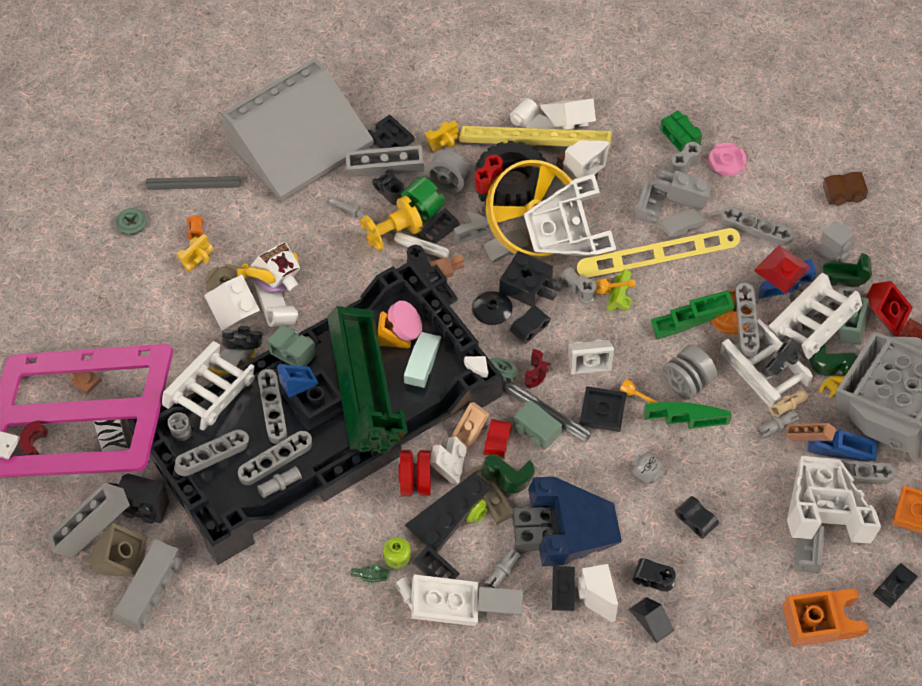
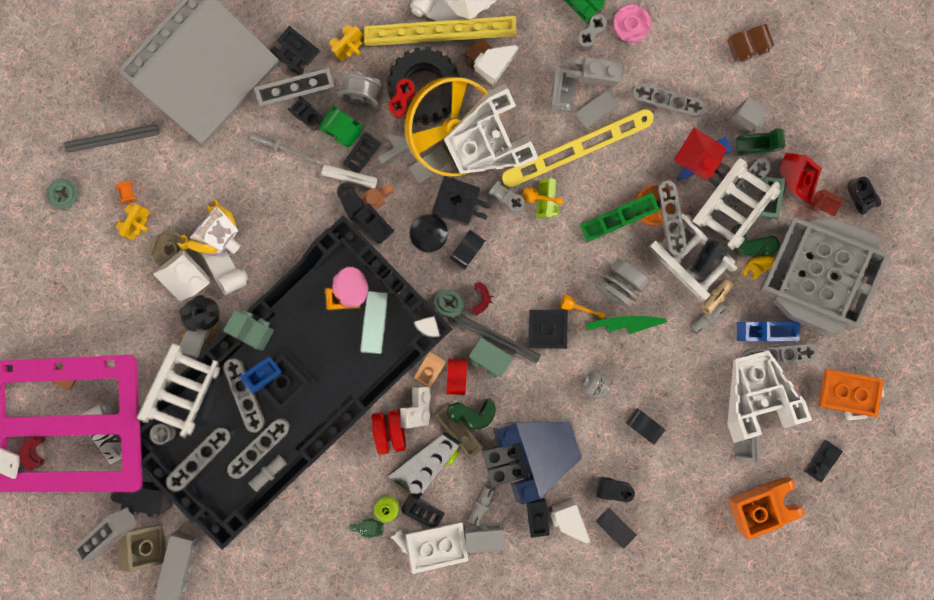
camera: 15 degrees left, 30 degrees up
(363, 381) = (323, 363): dark green brick -> none
(402, 218) = (321, 157): yellow piece -> none
(590, 356) = (528, 276): white slope -> none
(810, 432) = (741, 330): nougat piece -> none

